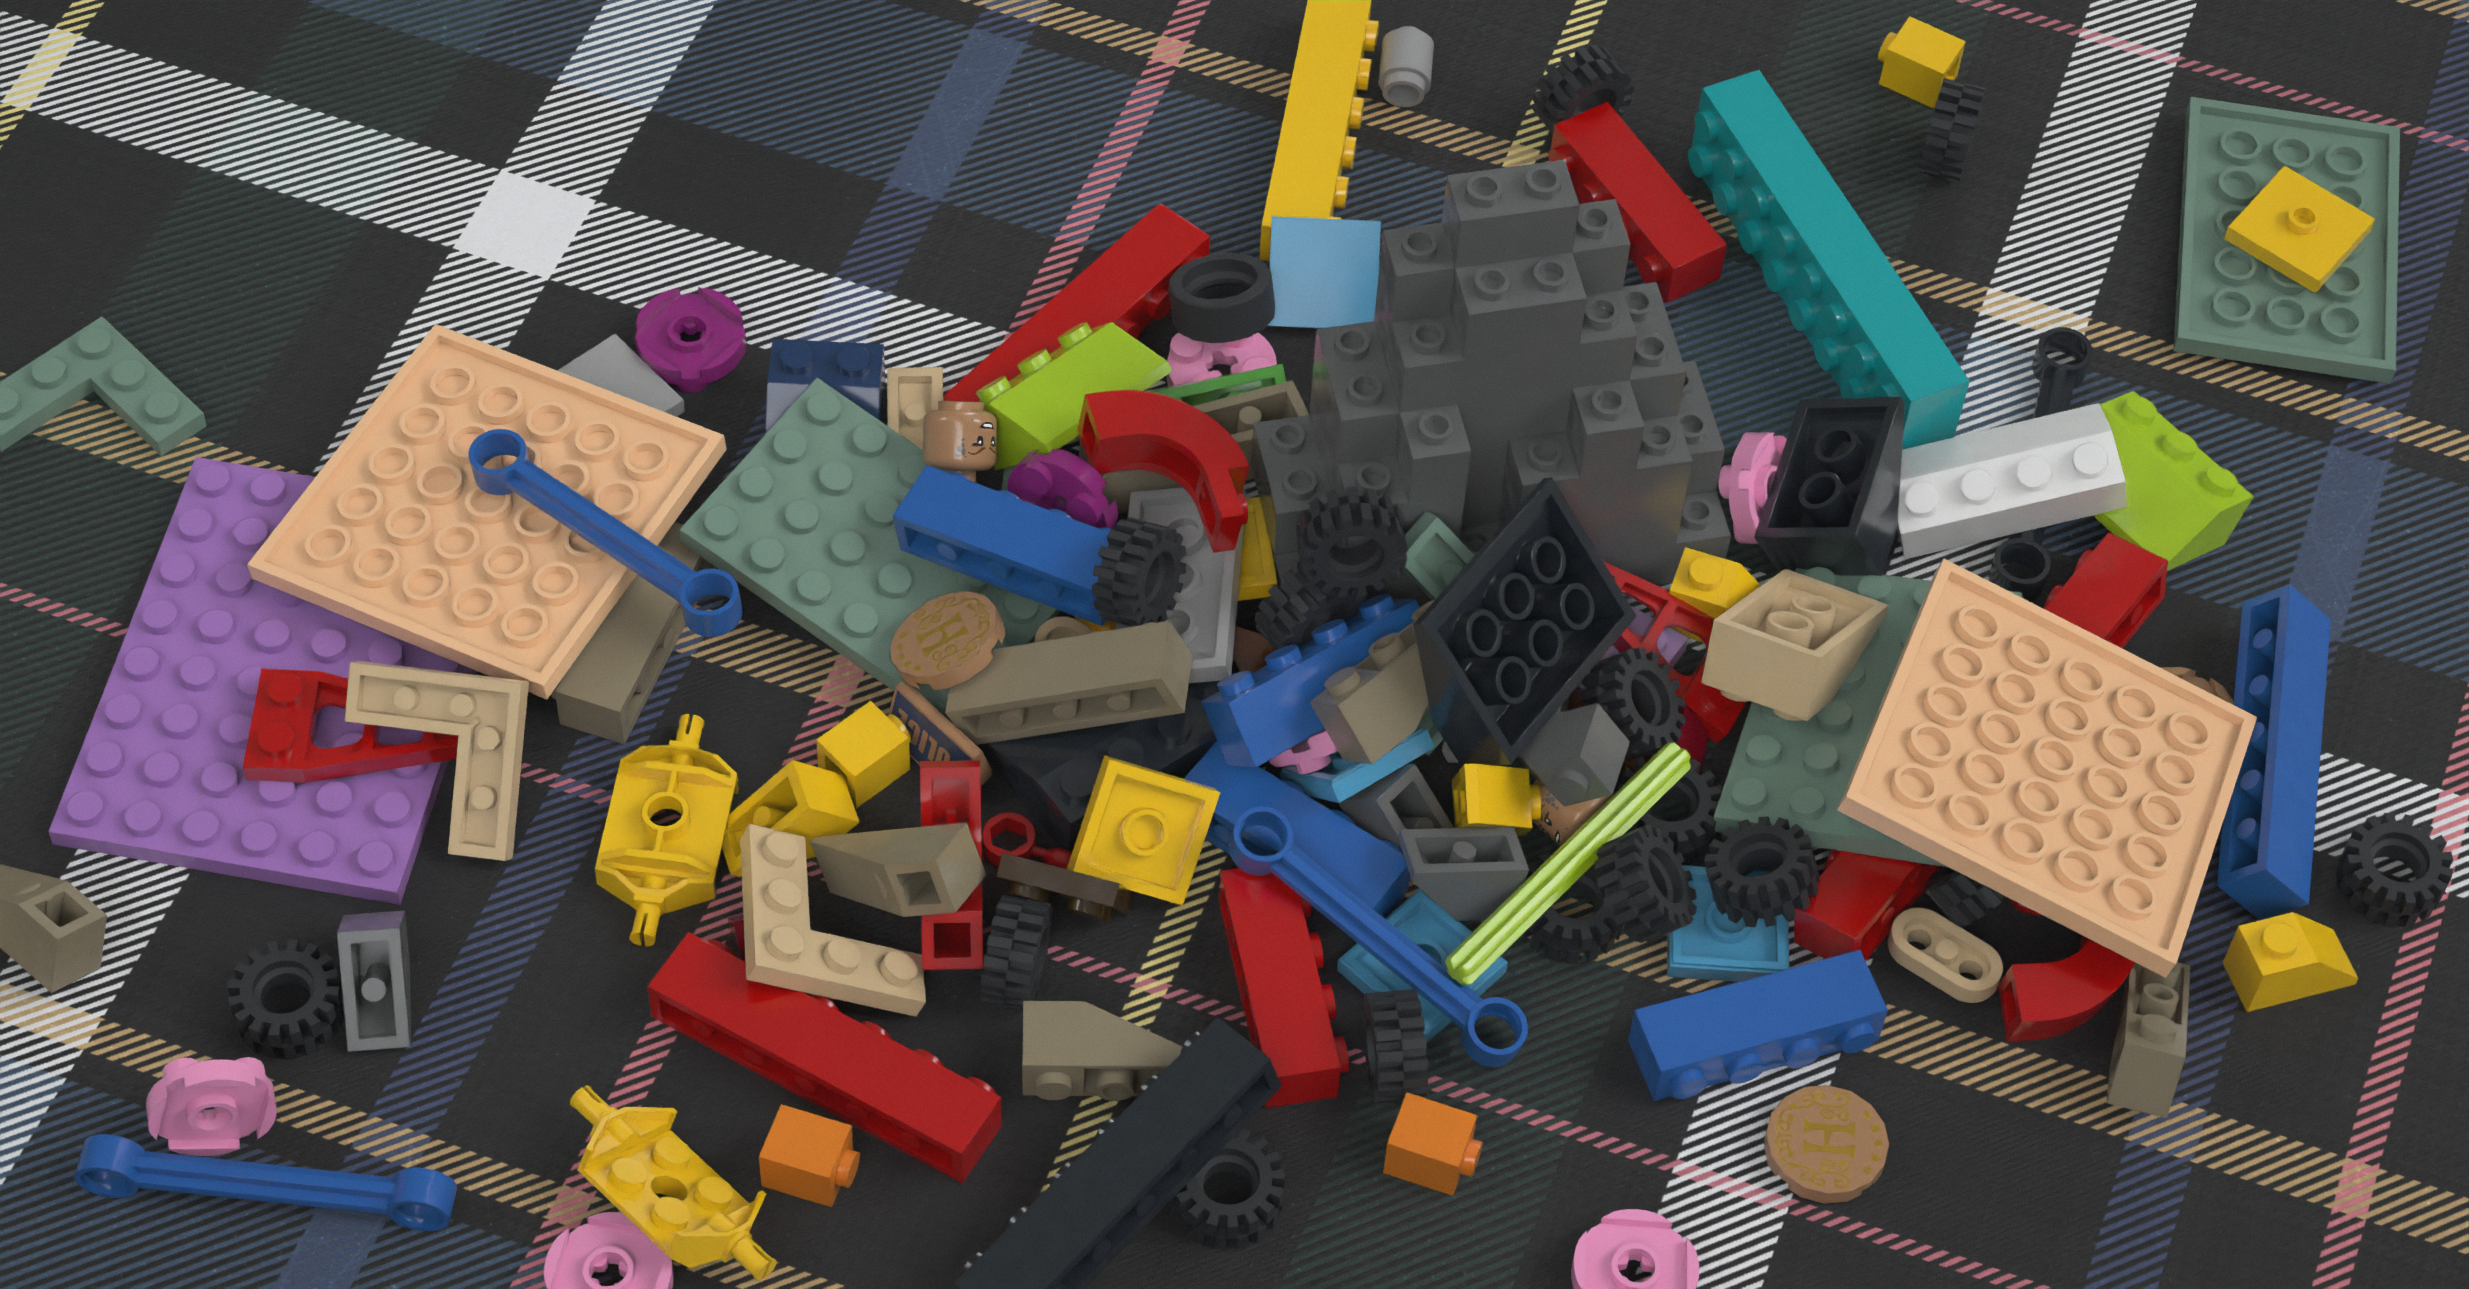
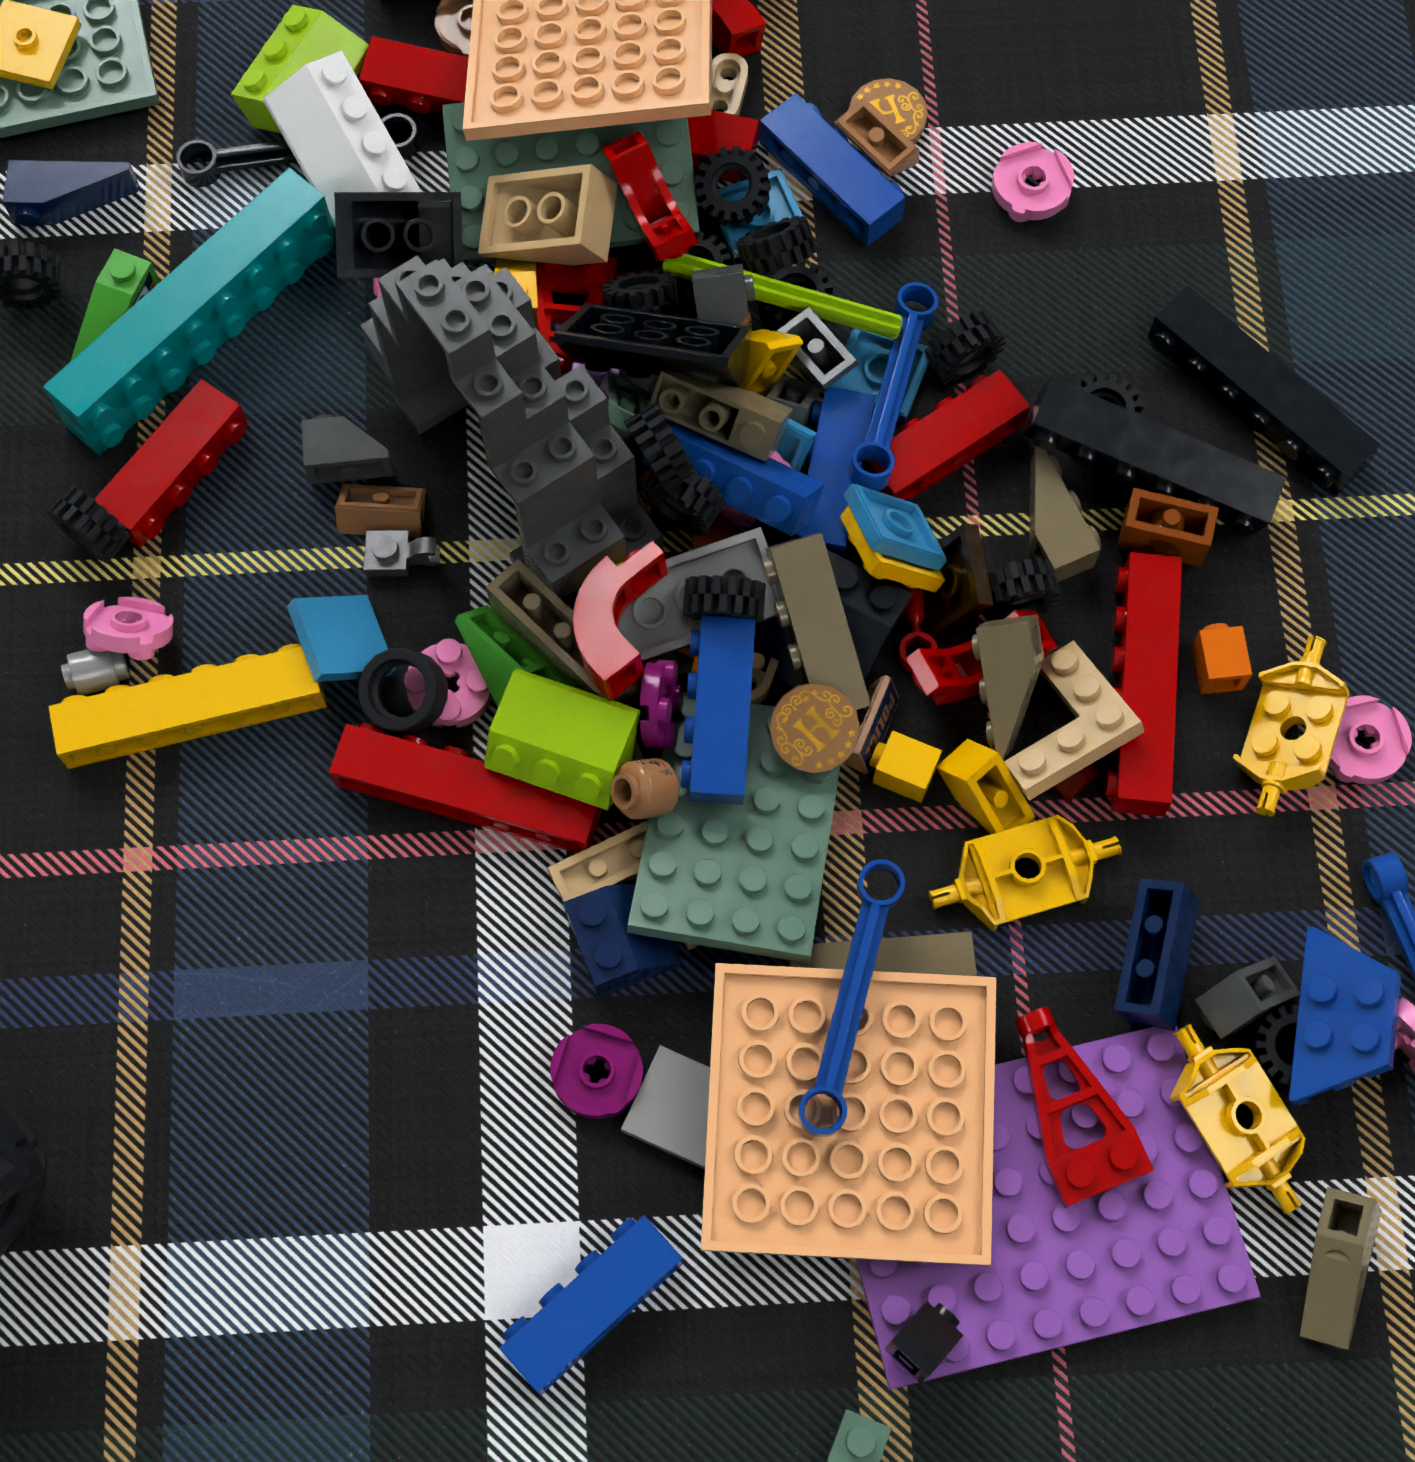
camera: 110 degrees left, 15 degrees up
(208, 459) = (925, 1340): none -> black slope
(280, 1021) = (1342, 1018): none -> blue wing
(291, 895) = (1210, 1094): none -> yellow plate
(452, 241) = (591, 1304): none -> blue brick
(479, 893) = (1157, 954): none -> dark blue brick
(490, 728) = (1044, 1005): tan plate -> none
(1014, 1164) = (1167, 526): none -> dark orange brick
(1166, 836) = (895, 527): none -> dark azure tile
(1413, 102) = (130, 627): none -> bright pink plate
(1432, 1144) = (1014, 311): orange brick -> none
(1758, 749) = (649, 197): none -> red arch
(1774, 1086) = (878, 138): none -> medium nougat slope
(1893, 213) = (116, 290): none -> bright green slope
(2070, 205) = (62, 190): none -> dark blue slope

